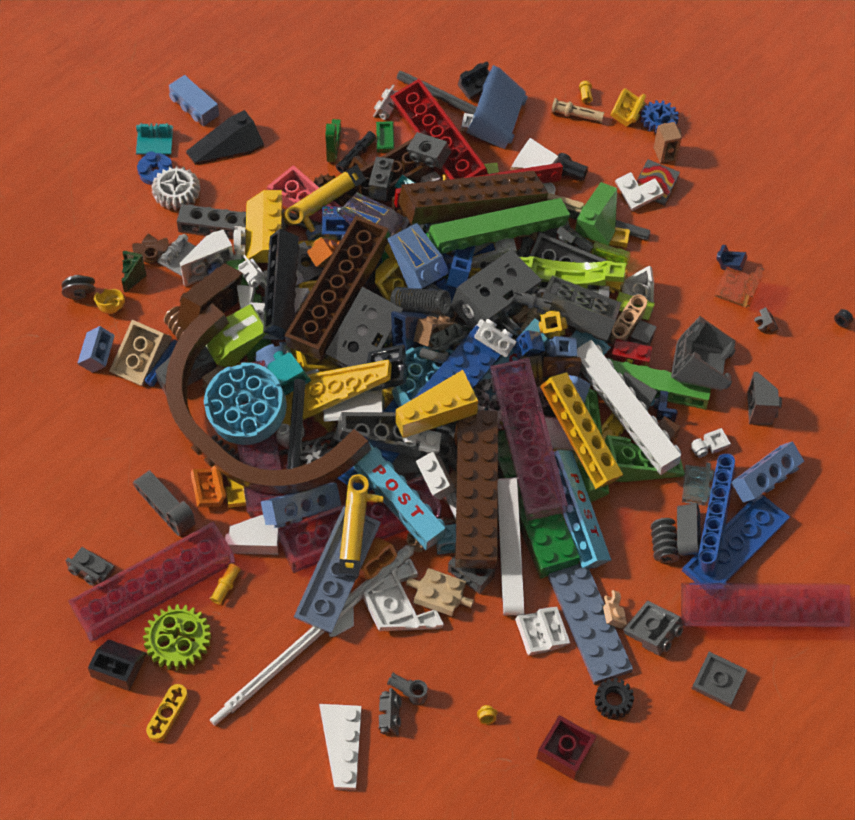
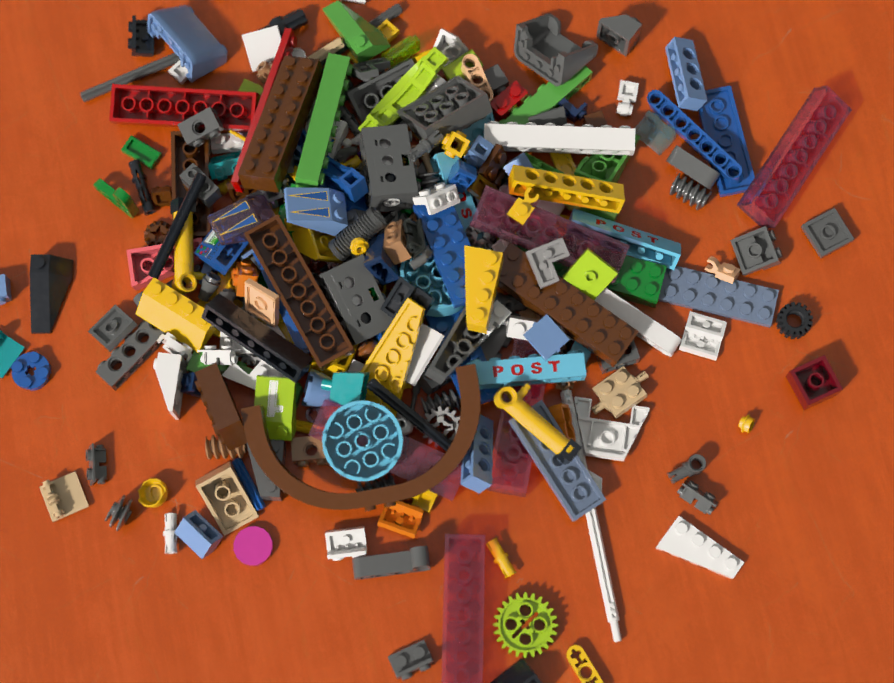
camera: 50 degrees left, 15 degrees up
(68, 245) = (63, 496): none -> tan hinge
(79, 336) = (170, 536): none -> white pin
(113, 246) = (96, 456): none -> dark grey hinge
(113, 396) = (253, 546): none -> dark pink tile
(133, 269) = (132, 454): dark green slope -> none
(151, 248) = (116, 424): reddish brown plate -> none
(160, 459) = (346, 543): none -> white bracket
(175, 187) = (73, 359): white gear -> none
(176, 253) = (146, 404): light grey hinge -> none
(225, 197) = (112, 328): none -> dark grey plate
(253, 537) = (473, 509): white slope -> none
(308, 234) = (208, 286): none -> dark grey cone
(311, 268) = (261, 302): none -> light nougat tile
(333, 177) = (177, 225): none -> black axle
(382, 107) = (108, 134): white hinge -> none
(412, 302) = (359, 242): none -> yellow plate
(436, 489) = (546, 337): none -> medium blue piece
(499, 439) = (542, 259): none -> light grey plate
(516, 488) = (590, 274): none -> lime plate
(529, 397) = (521, 208): none -> yellow plate

